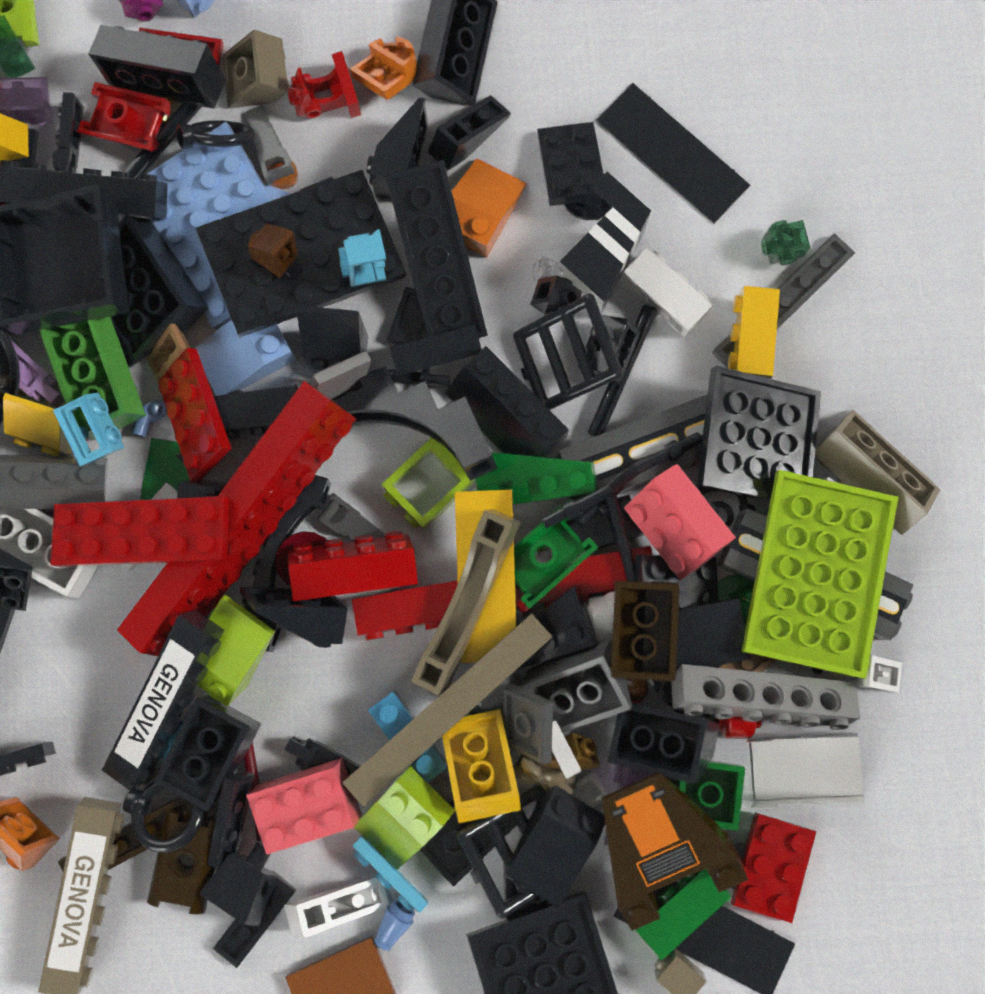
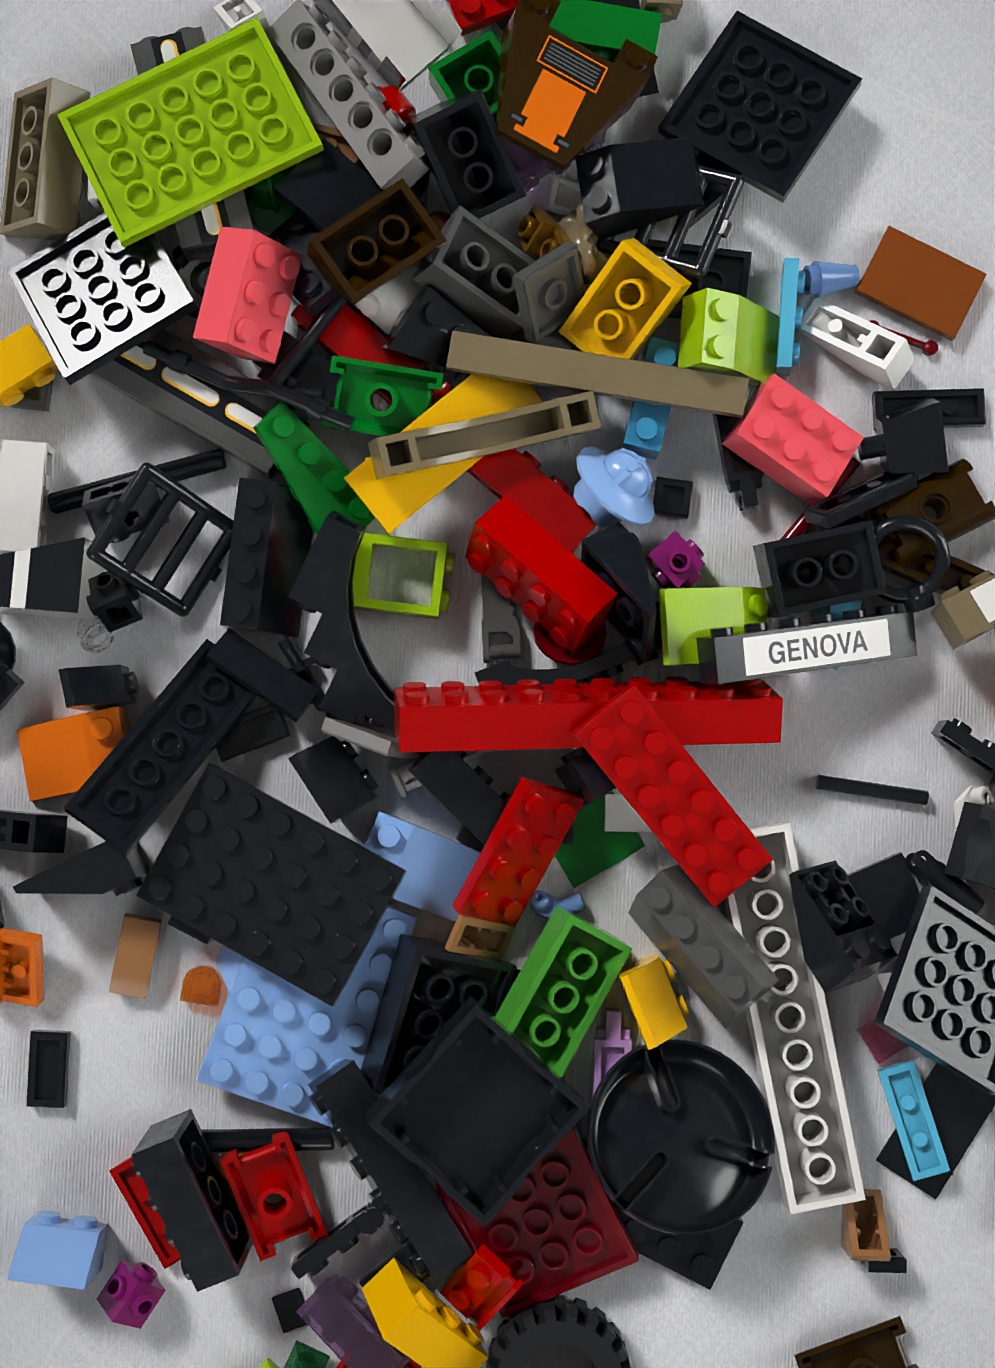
camera: 130 degrees left, 5 degrees up
(49, 672) = (872, 789): none -> black bar
(57, 80) = (286, 1307): none -> black sticker
(97, 415) = (595, 937): medium azure window -> none
(193, 134) = (239, 1101): black piece -> none
(255, 70) = (116, 1103): dark tan slope -> none
(268, 146) = (185, 1022): dark grey piece -> none
(273, 248) = (291, 902): reddish brown slope -> none
(295, 954) = (929, 348): none -> dark red hinge
(301, 668) = (677, 549): none -> magenta brick
(309, 50) = (48, 1068): none -> black tile
(331, 147) = (135, 955): none -> medium nougat slope
(337, 698) = (672, 497): none -> black tile
(338, 81) = (64, 1000): red tile -> none
(363, 259) = (230, 801): medium azure window -> none
(369, 661) = (614, 486): none -> light blue helmet
(507, 242) = (98, 687): none -> black slope
(563, 752) = (552, 235): white sticker -> none

